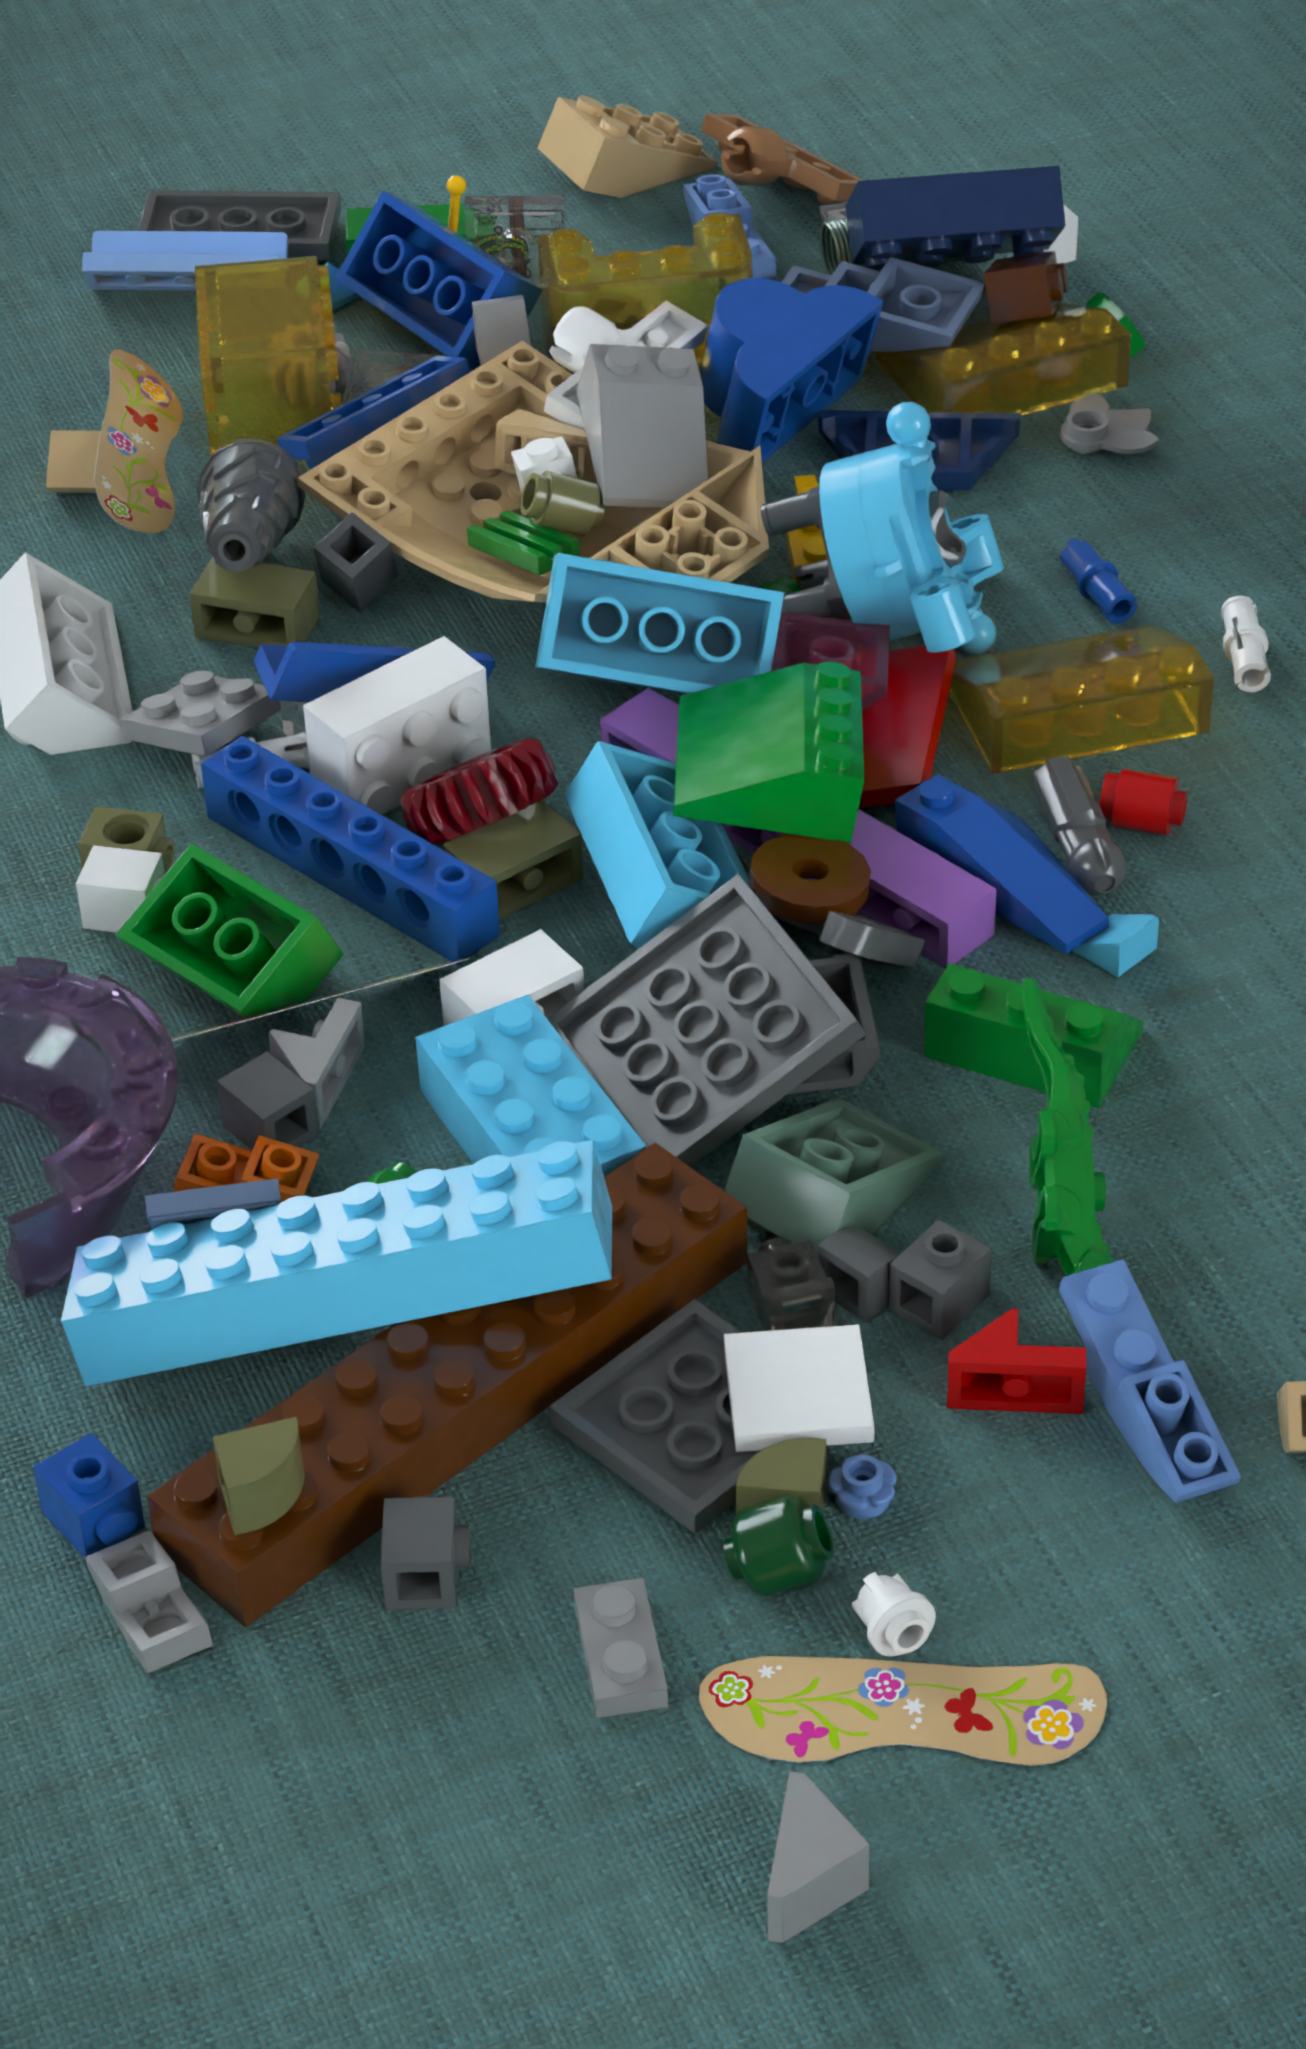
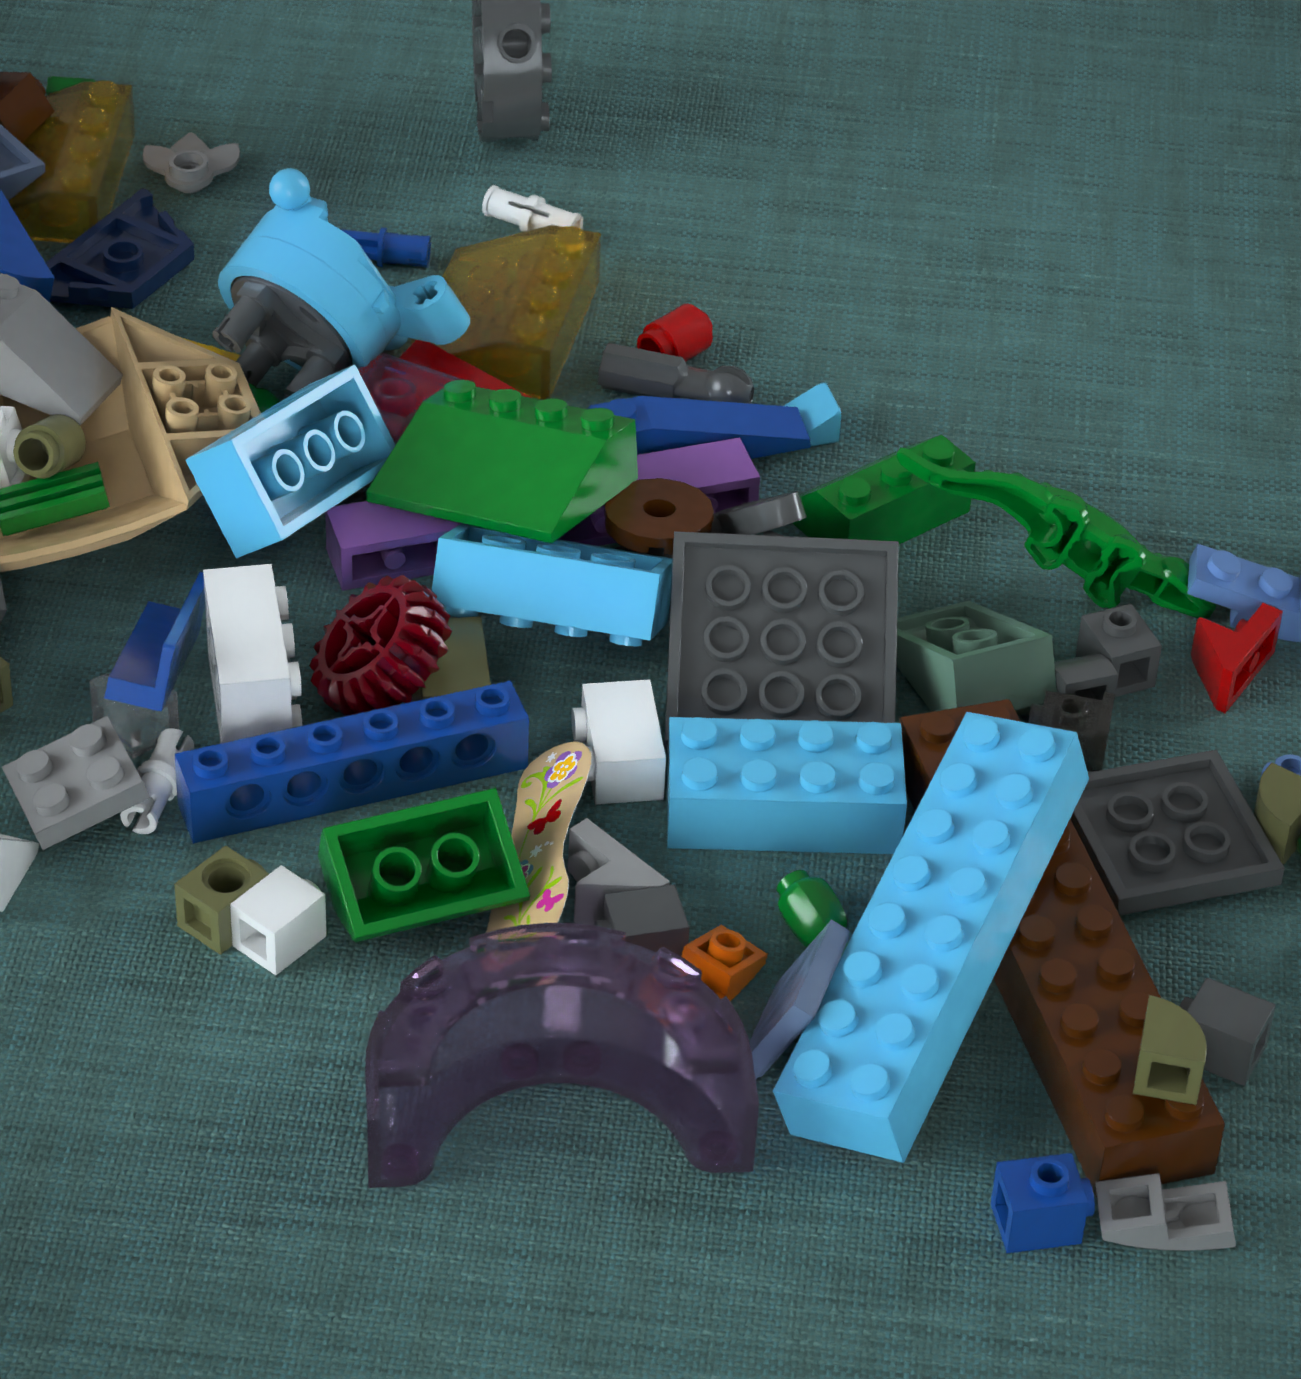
camera: 65 degrees left, 0 degrees up
(798, 1386) = (1200, 759): white tile -> none

